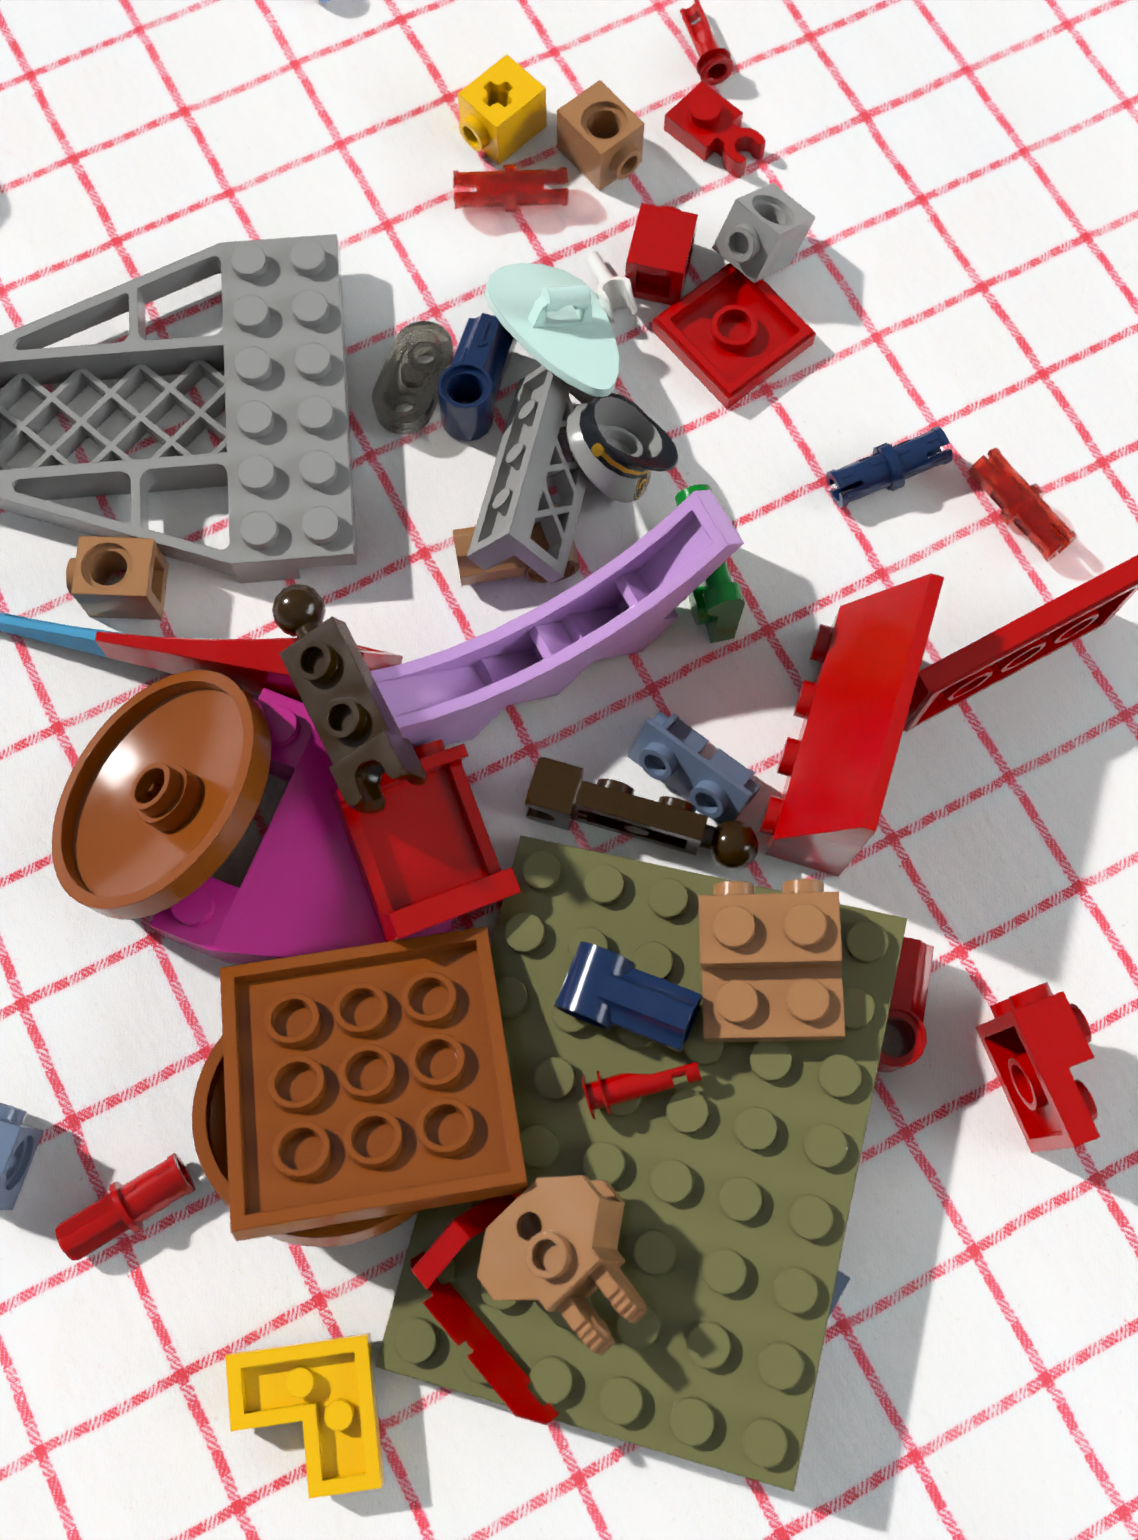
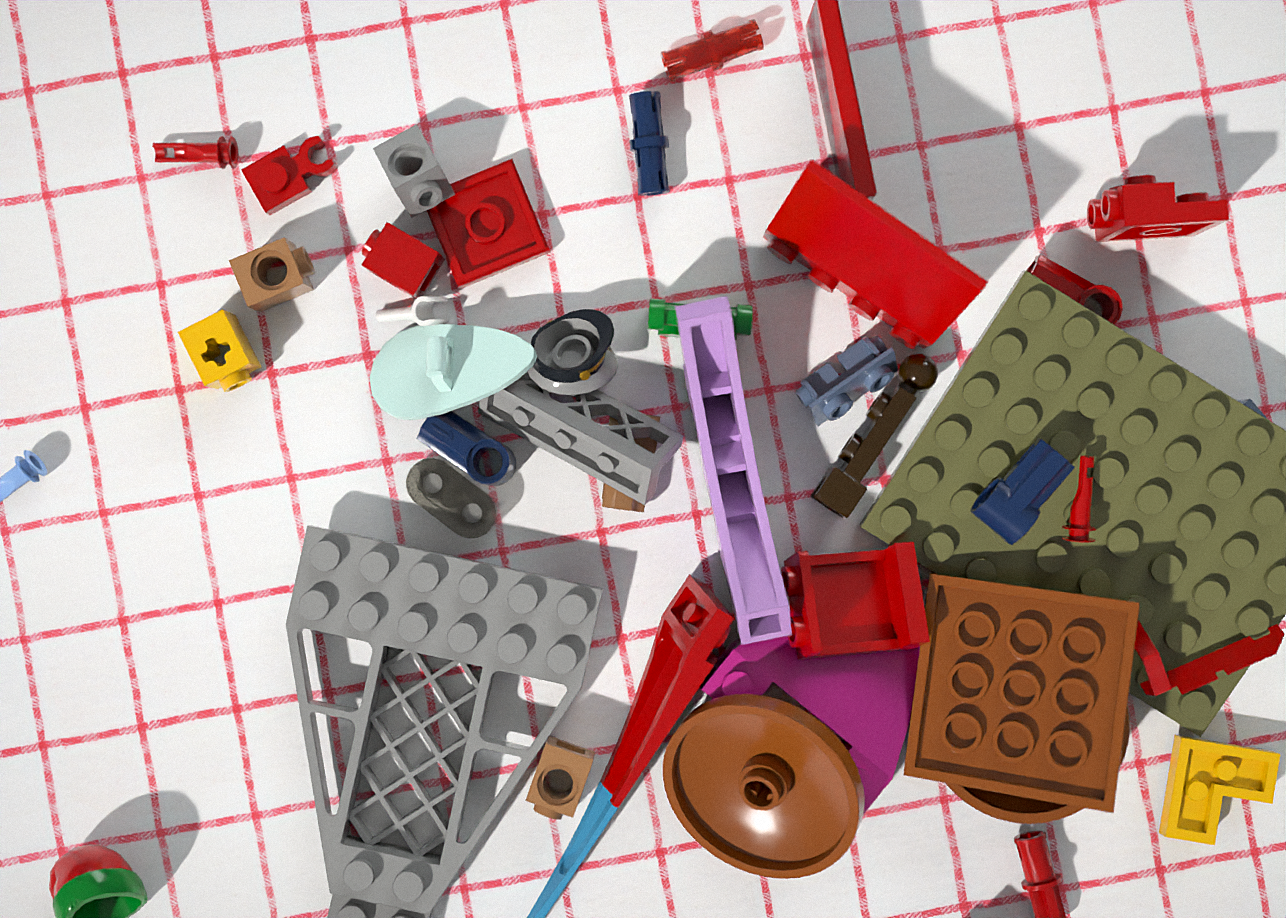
camera: 70 degrees left, 15 degrees up
(343, 701) = (756, 634): dark brown plate -> none
(510, 188) = (297, 366): clear red pin -> none
(562, 1254) = (1181, 591): medium nougat hinge -> none
(771, 963) = (1032, 381): medium nougat plate -> none

